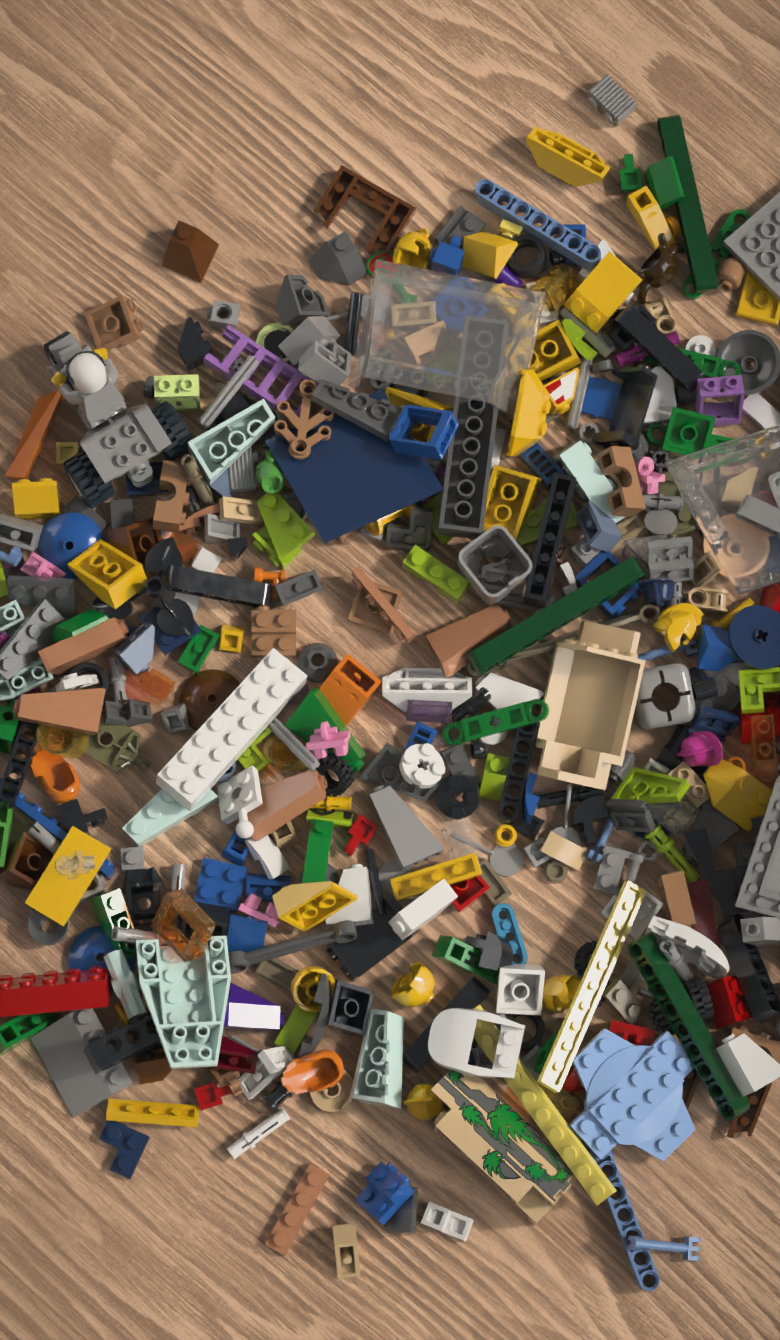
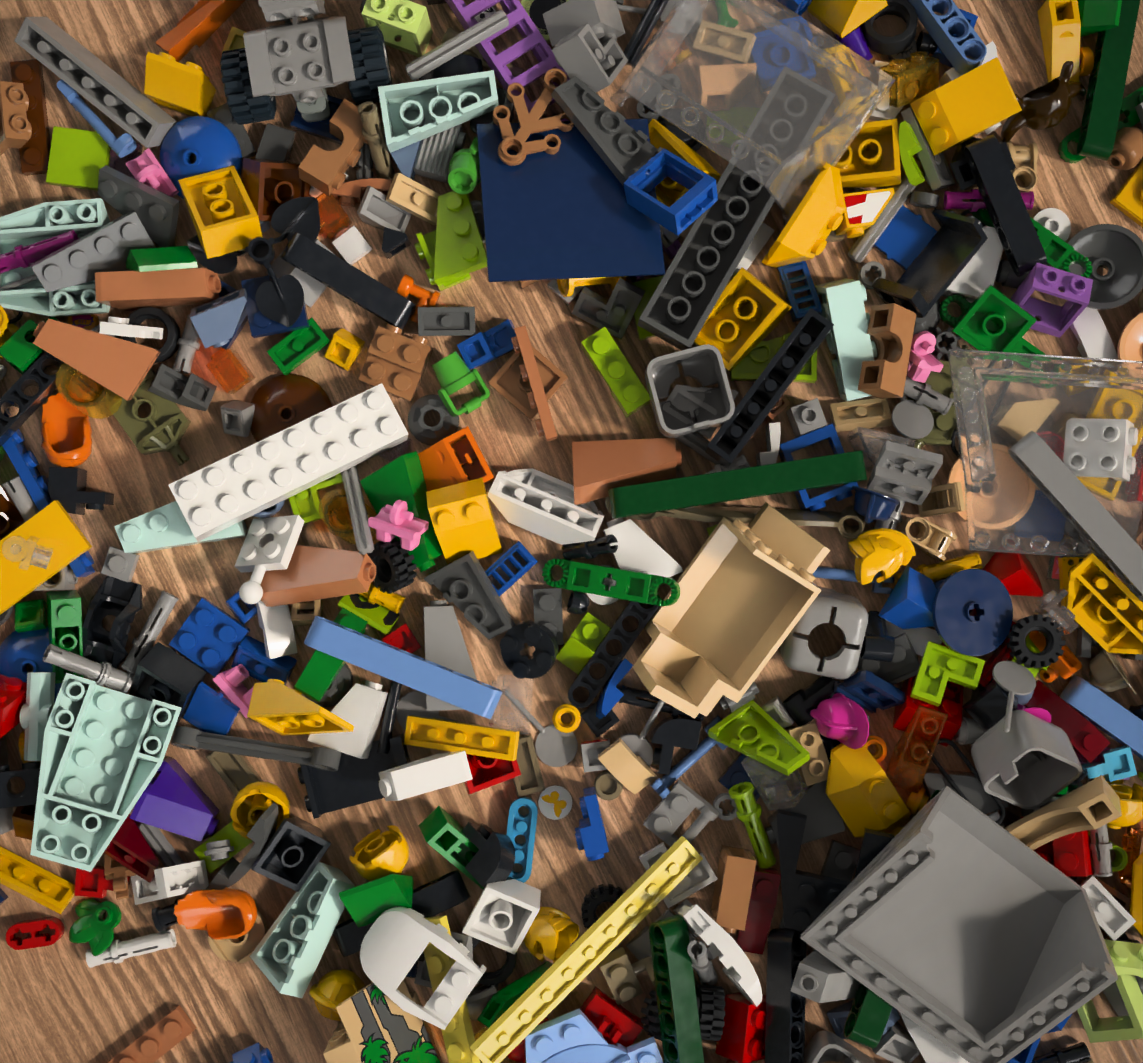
camera: 25 degrees right, 10 degrees up
(83, 922) = (30, 615): none -> green tile
(178, 1148) = (35, 939): none -> red beam
(181, 903) = (131, 677): clear orange window -> none
(224, 1129) = (92, 926): none -> green plate
(294, 1029) = (219, 849): none -> light grey plate
(321, 623) = (453, 376): none -> bright green piece
(335, 593) = (487, 345): none -> blue slope
(373, 721) = (463, 520): none -> yellow slope
(374, 839) = (402, 667): none -> medium blue beam
(422, 1012) = (373, 898): none -> green slope
(427, 755) = (490, 611): white plate -> none
(429, 711) = (537, 535): clear purple tile -> none
(523, 901) = (555, 802): none -> white sticker
(560, 905) = (591, 830): none -> blue plate
(598, 527) = (834, 396): sand blue slope -> none
(630, 815) = (723, 762): dark grey plate -> none

